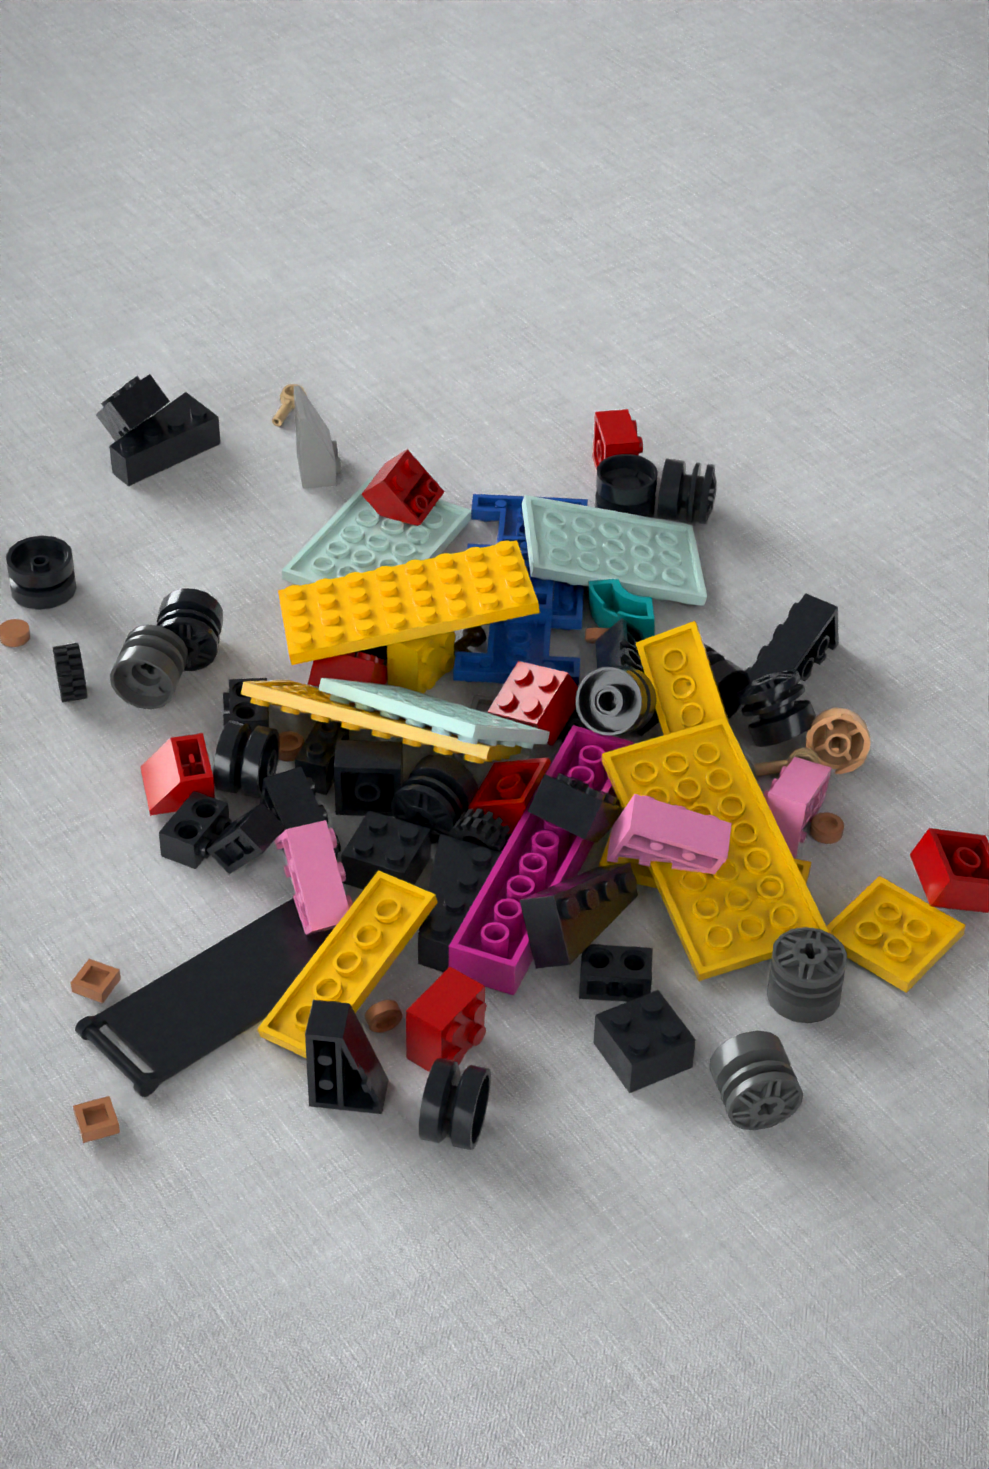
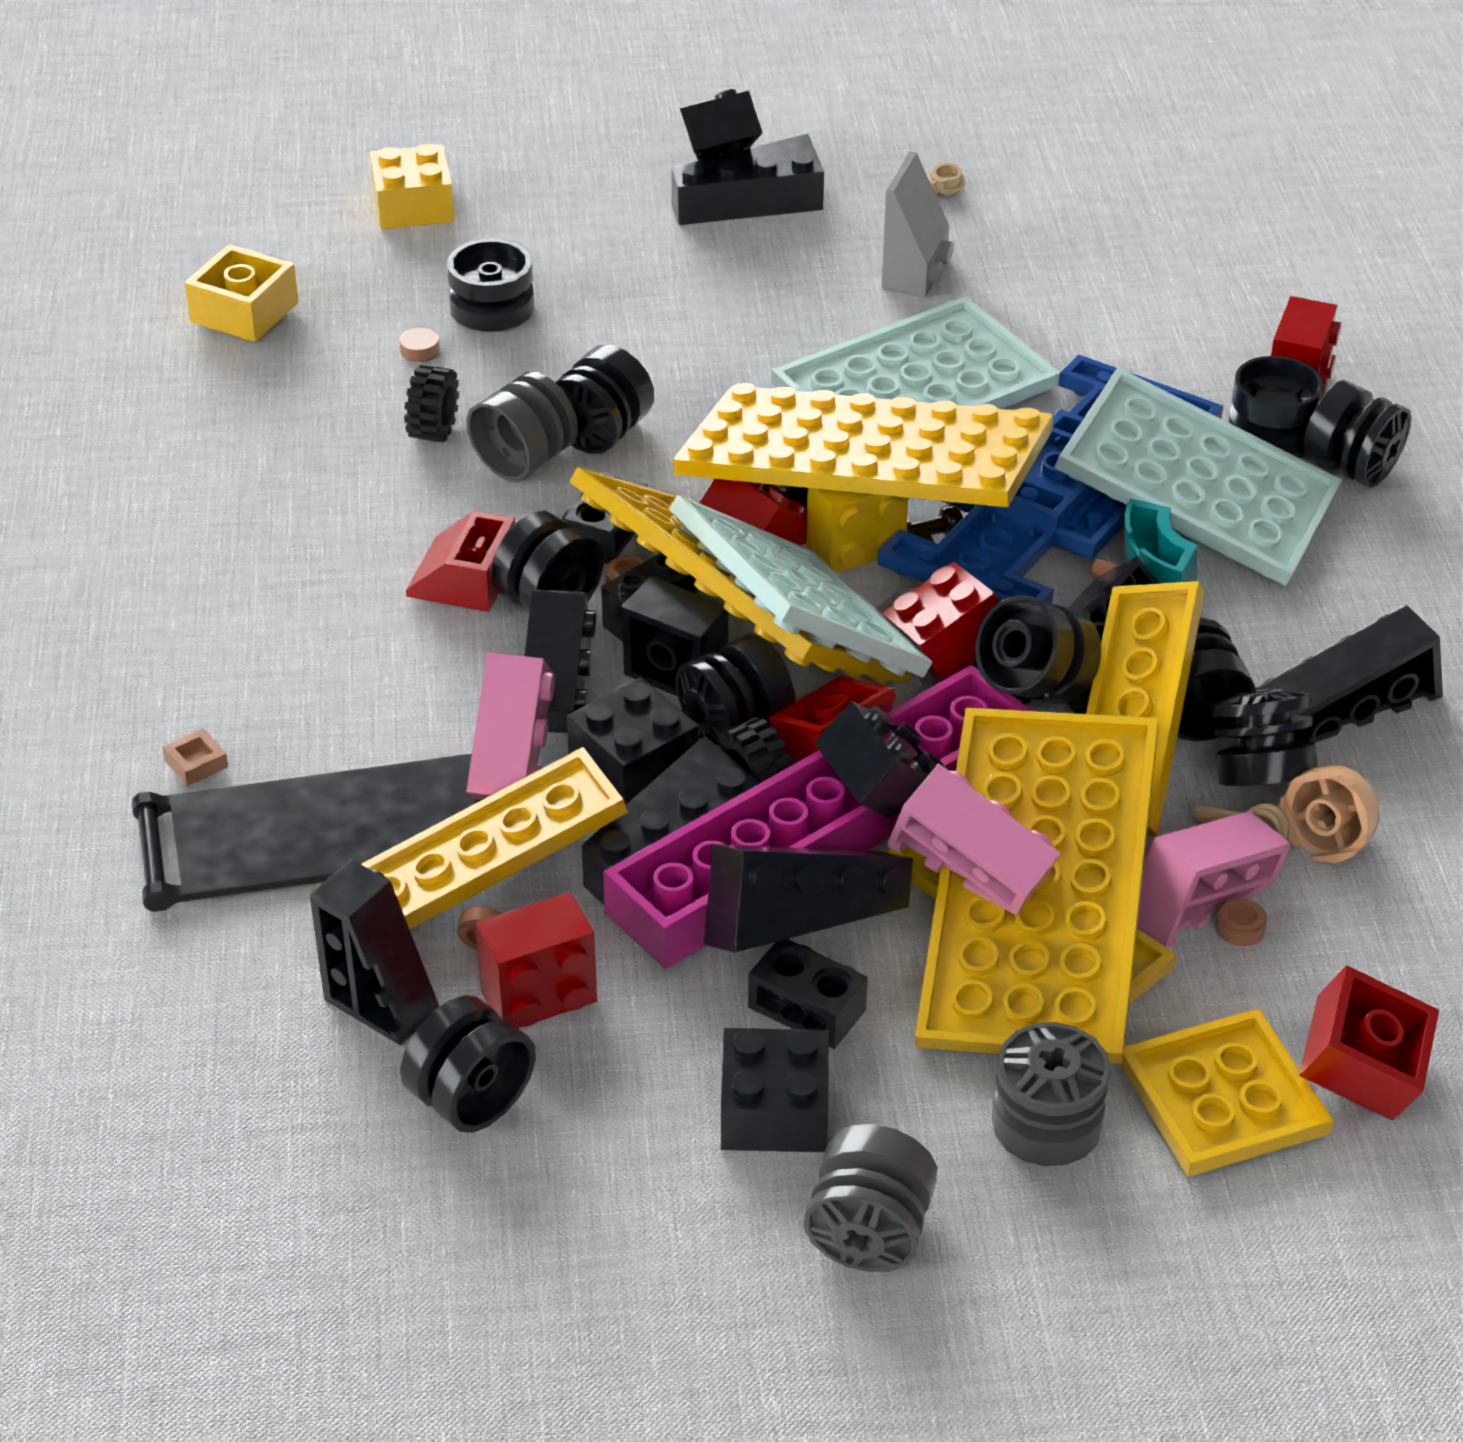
camera: 30 degrees right, 0 degrees up
(96, 1119) = (70, 912): nougat plate -> none
(193, 829) = (437, 629): black brick -> none
(245, 838) = (462, 656): black brick -> none
(403, 490) = (983, 321): red slope -> none

